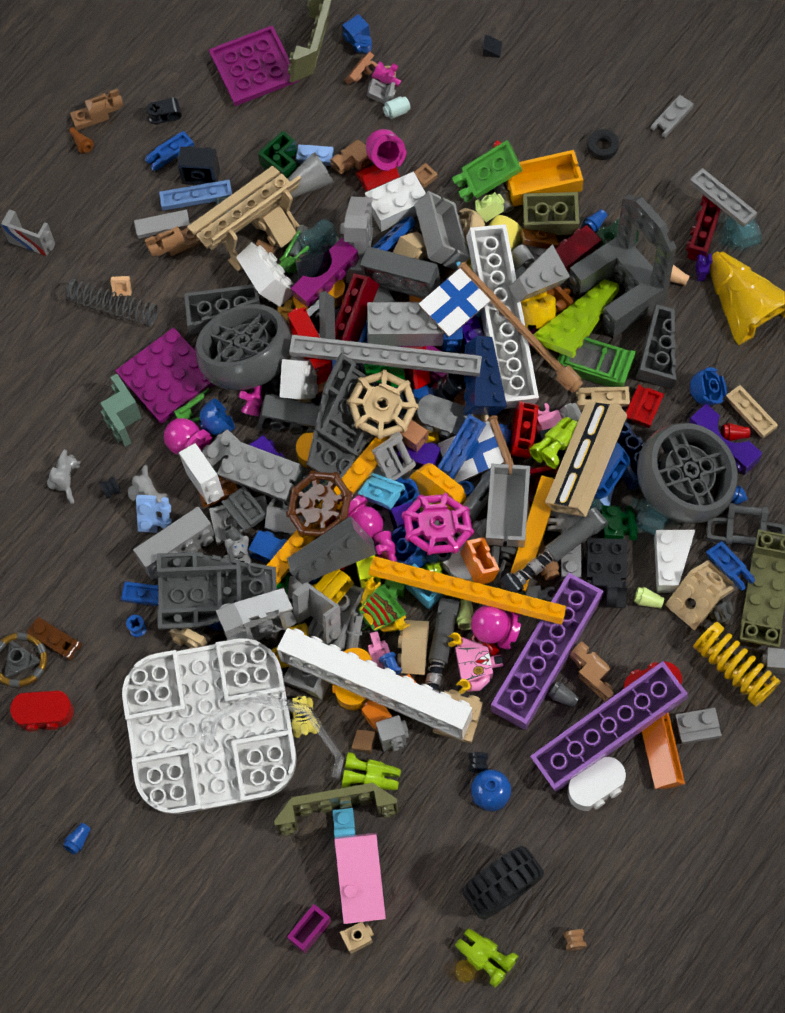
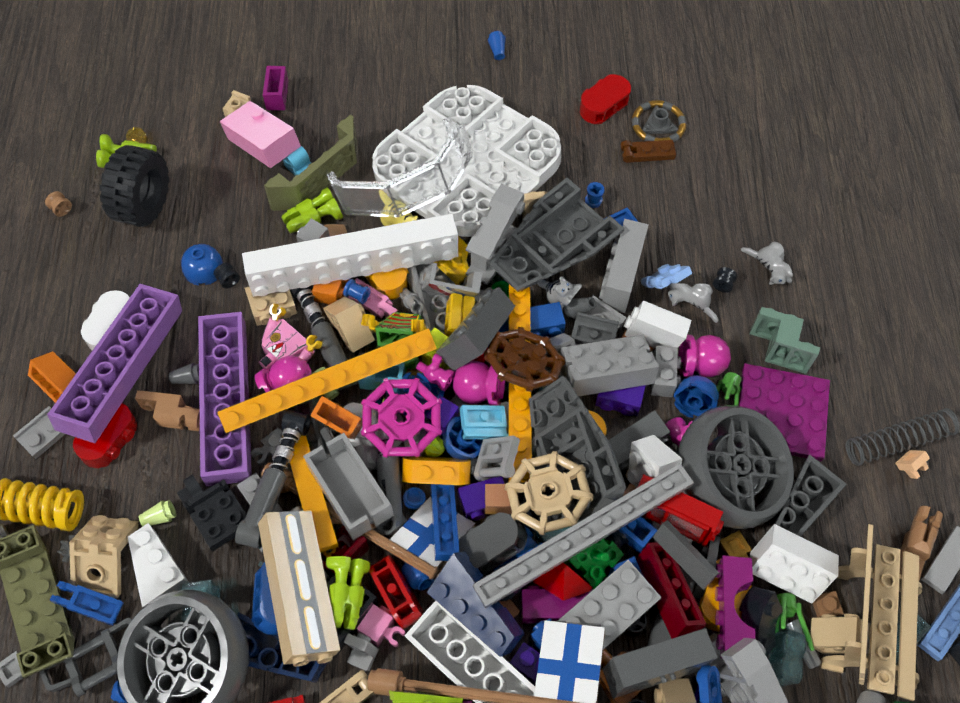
camera: 135 degrees right, 5 degrees down
(615, 517) = (239, 562): dark green plate -> none

